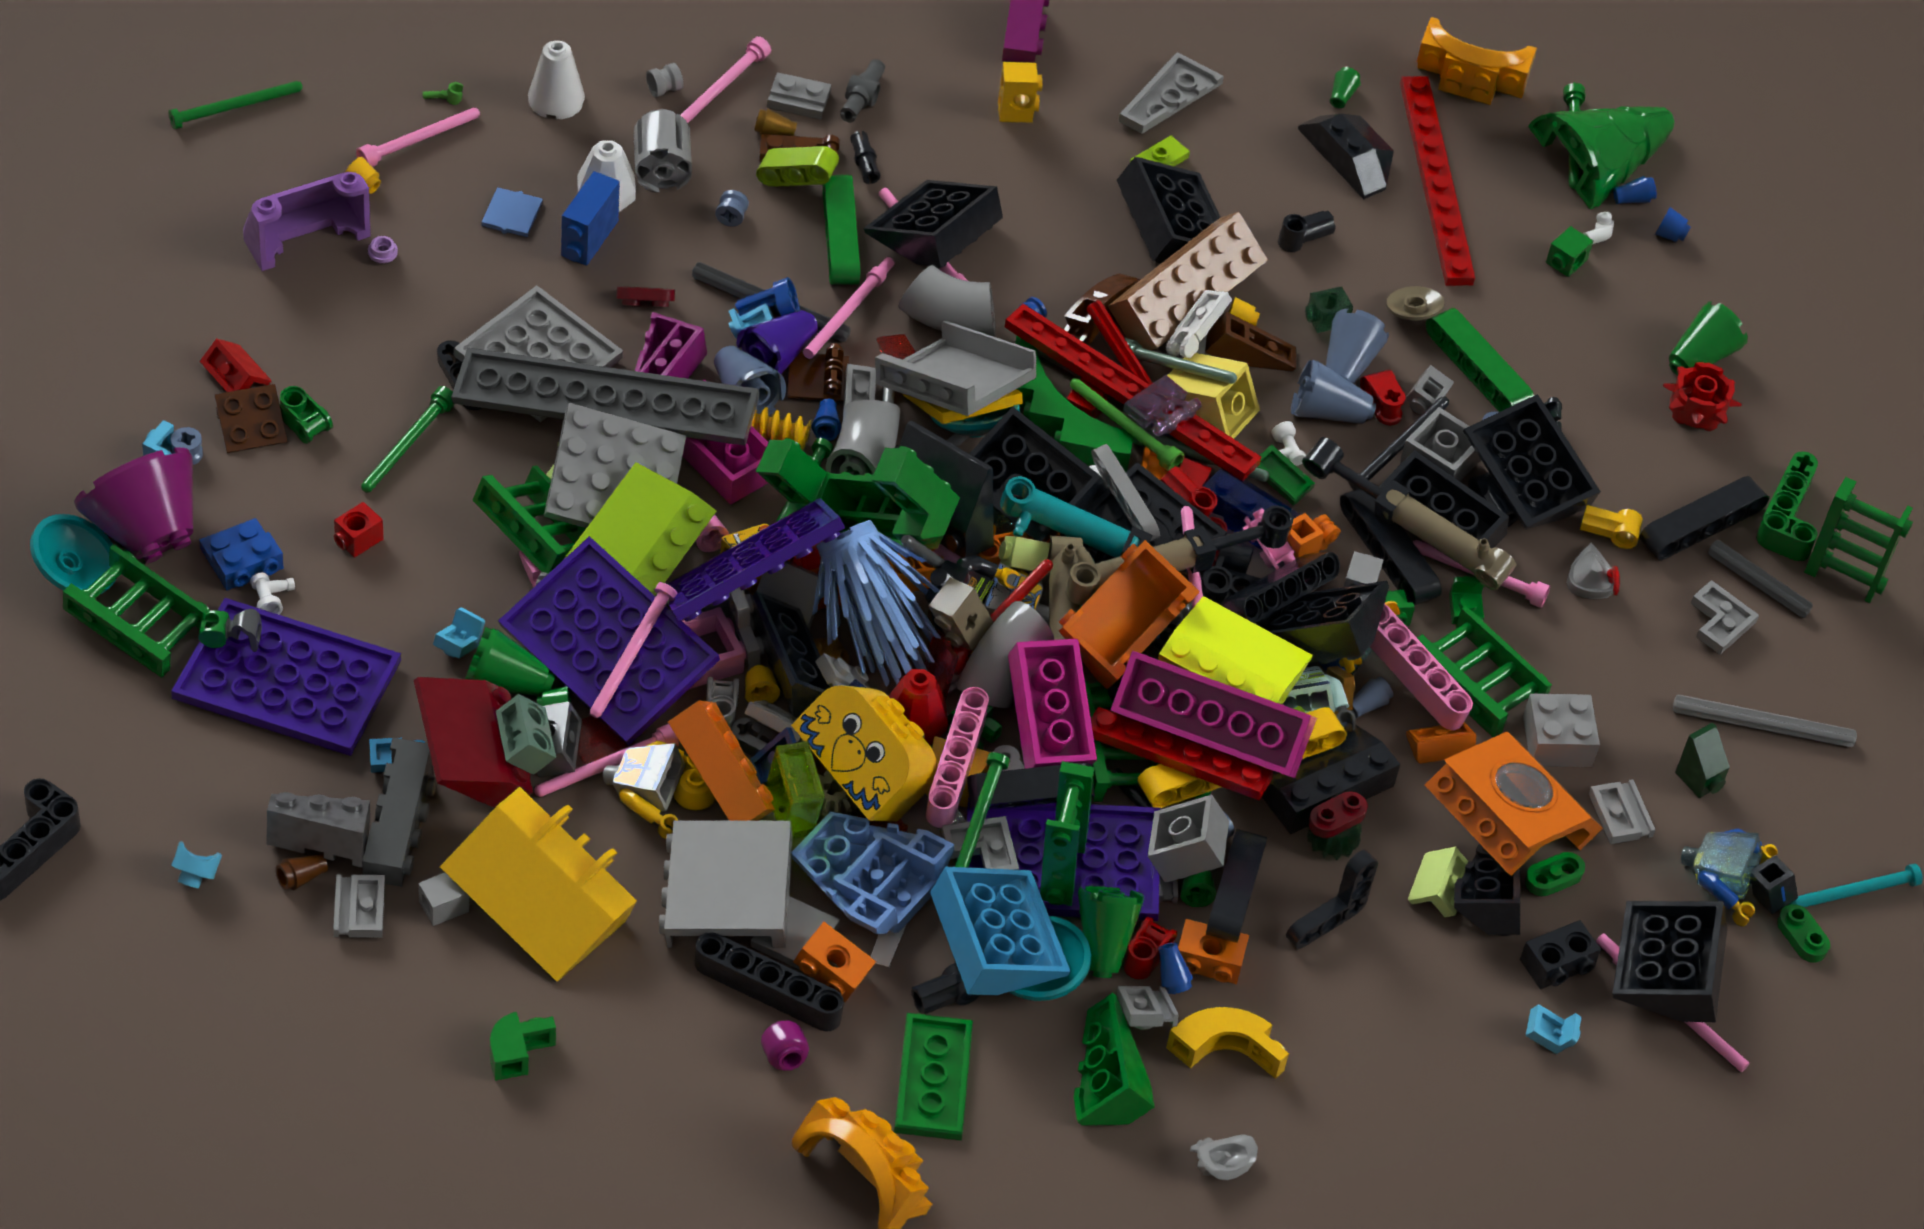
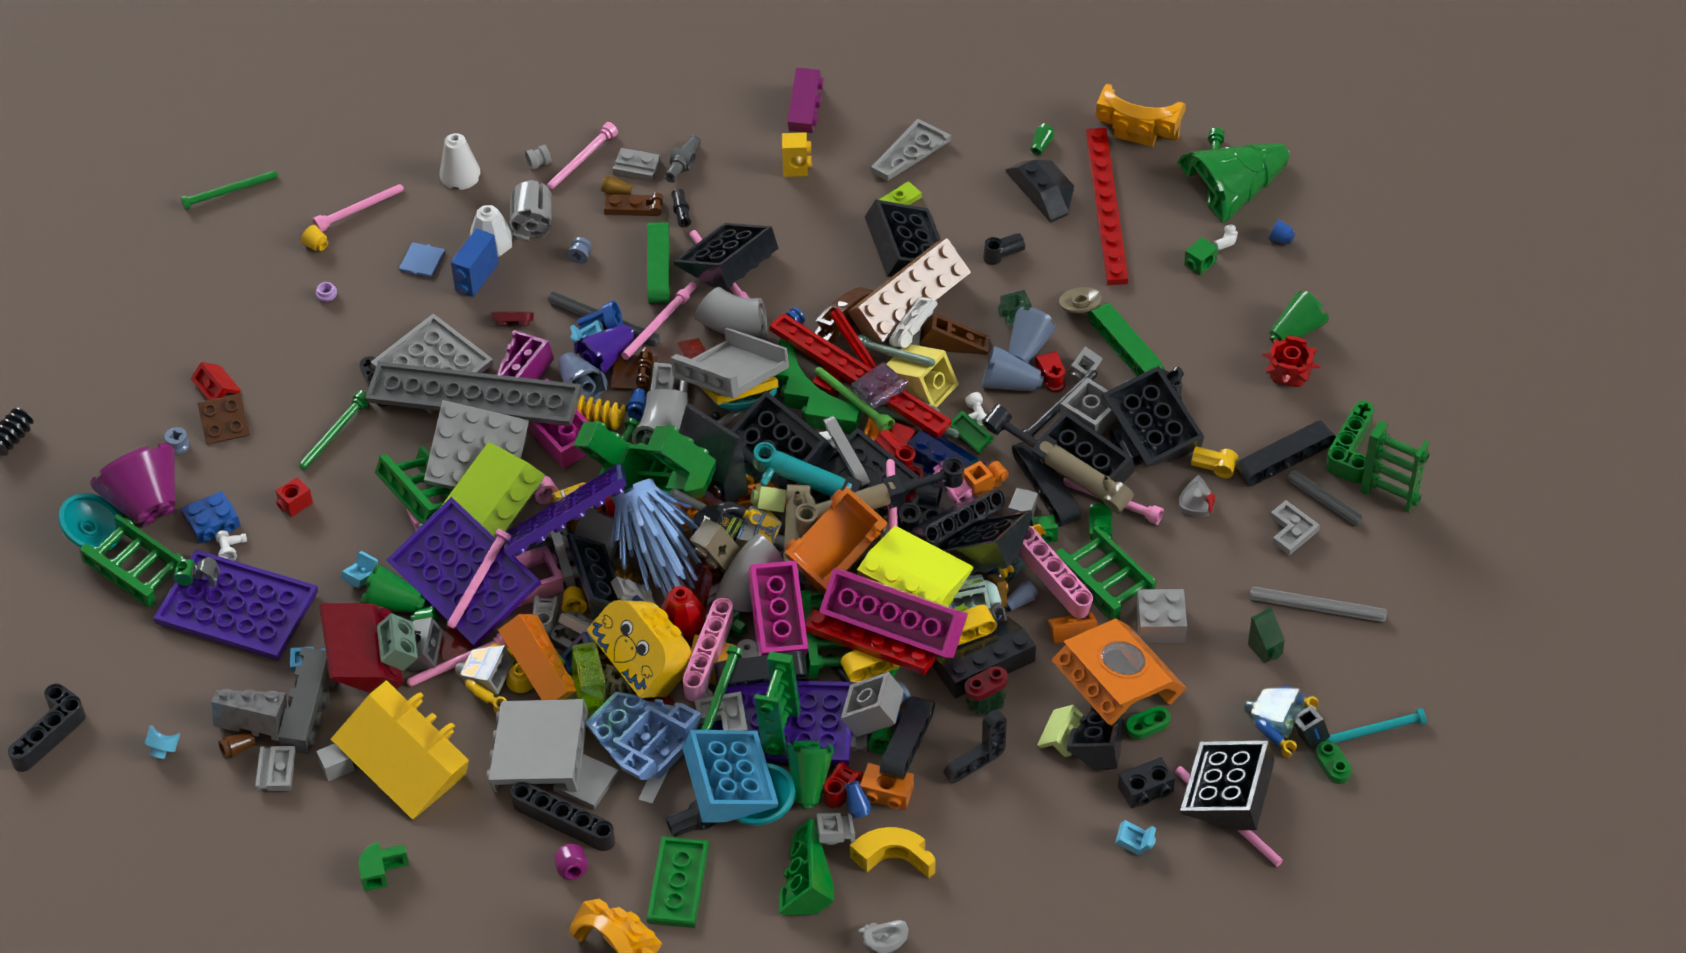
camera: 10 degrees right, 0 degrees up
(159, 439) = (156, 436): medium azure bracket -> none
(303, 414) = (260, 414): green piece -> none
(332, 201) = (270, 265): medium lavender windscreen -> none
(452, 95) = (385, 174): bright green hand -> none
(797, 166) = (628, 217): lime beam -> none
(831, 945) = (607, 789): orange brick -> none
(1017, 595) = (760, 529): red piece -> none
(1244, 311) = (951, 312): yellow hat -> none
(1621, 811) = (1202, 675): light grey plate -> none
(1637, 191) = (1256, 208): blue cone -> none

